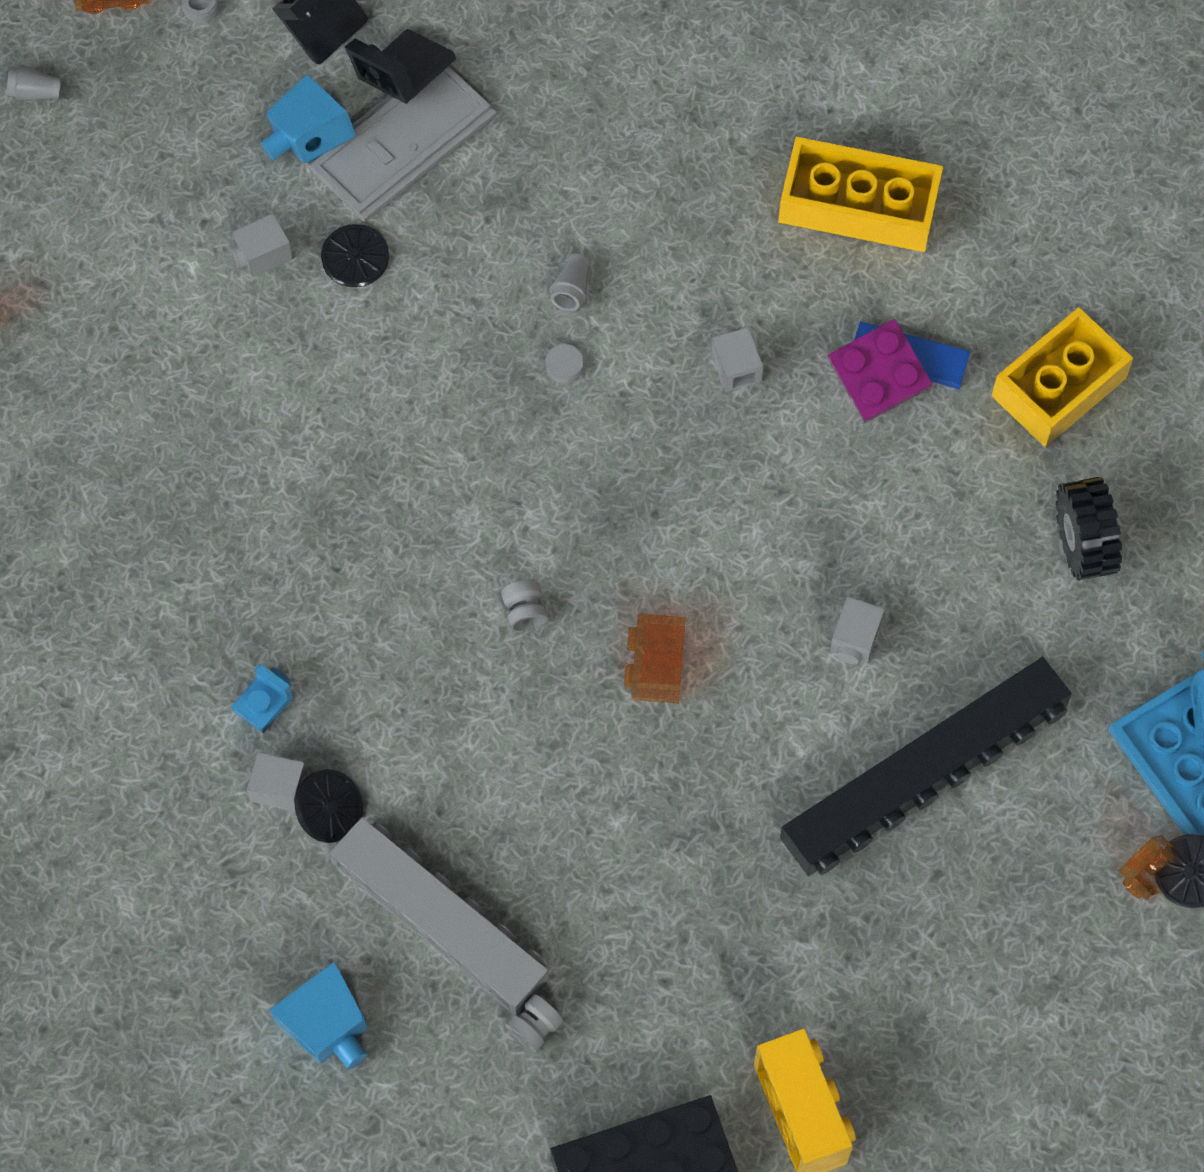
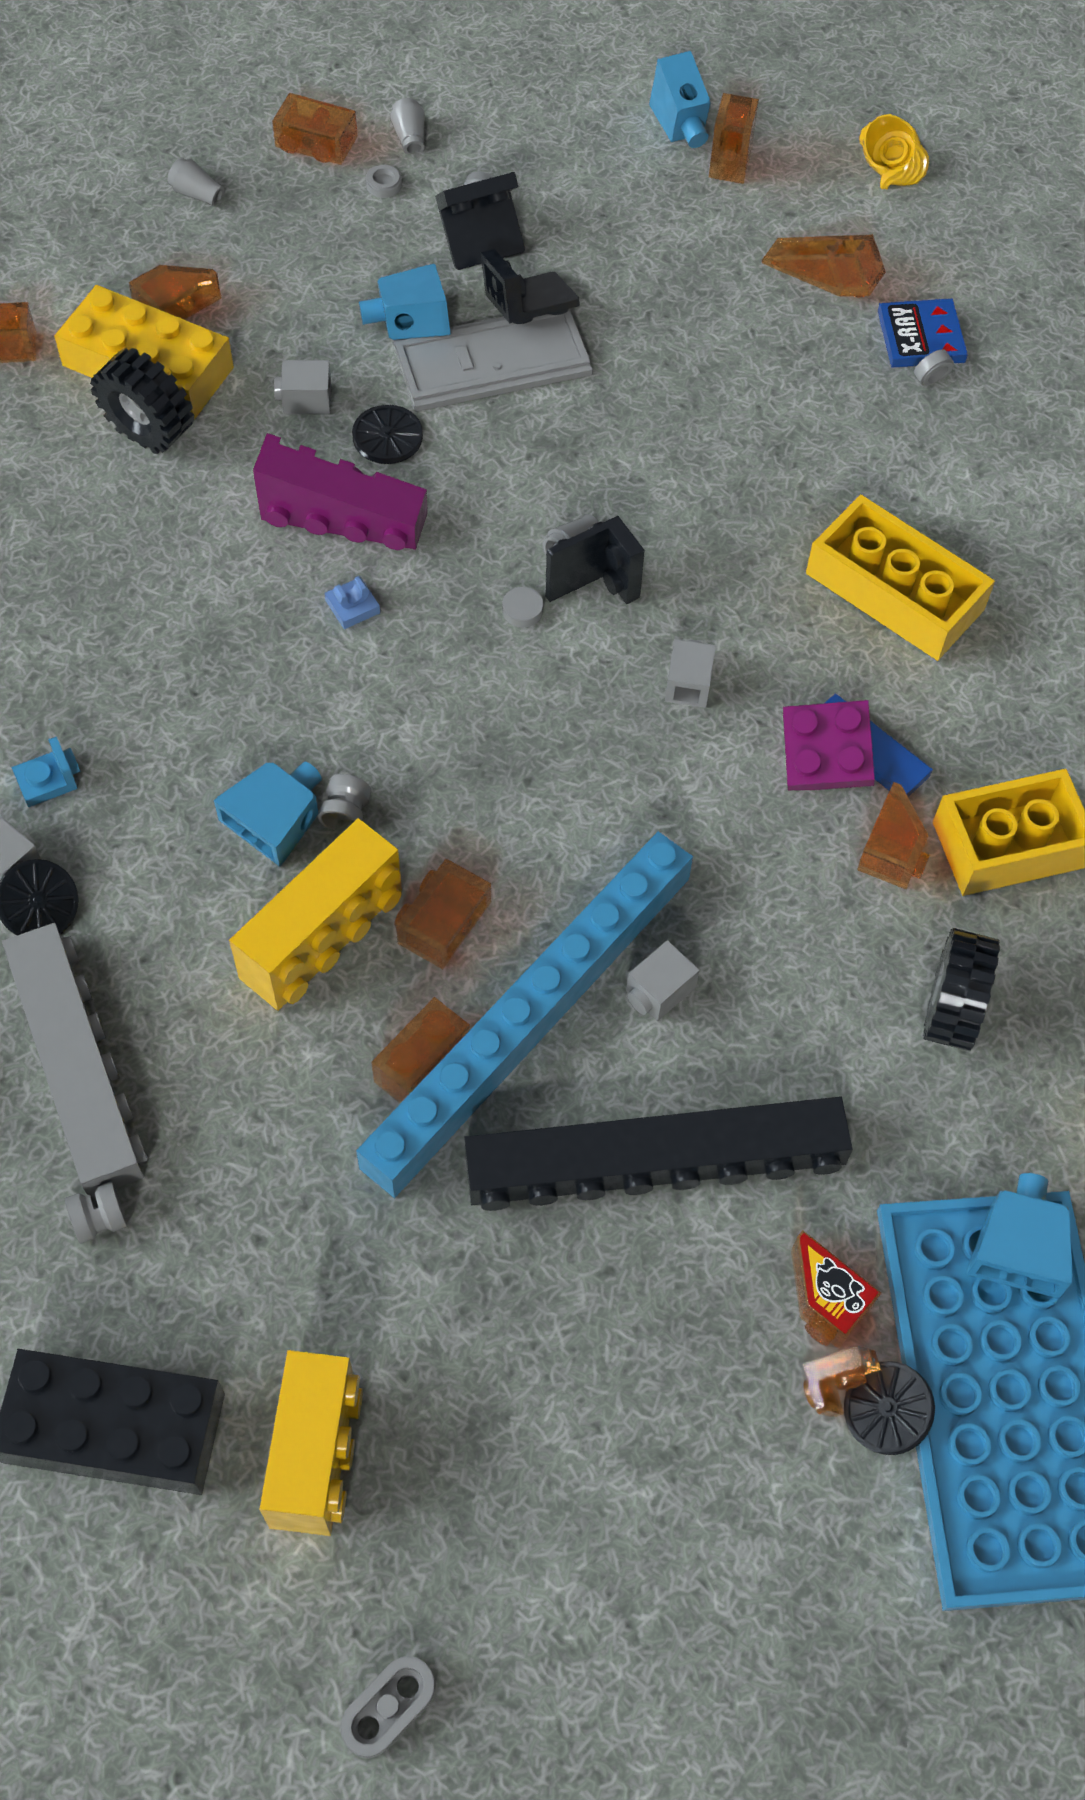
camera: 25 degrees right, 5 degrees down
(85, 208) = (177, 289): none -> clear orange slope
(99, 277) = (111, 322): none -> yellow brick
(138, 328) = (142, 400): none -> black wheel
(359, 340) = (336, 498): none -> magenta wedge
(420, 426) = (352, 602): none -> medium blue tile
(468, 638) = (271, 808): none -> dark azure torso
(568, 709) = (318, 915): none -> yellow brick
(619, 283) = (599, 552): none -> black bracket
(707, 778) = (418, 1049): none -> clear orange brick
(769, 706) = (523, 1015): none -> dark azure brick
(974, 427) = (896, 842): none -> clear orange slope
(1106, 809) = (829, 1292): none -> slope

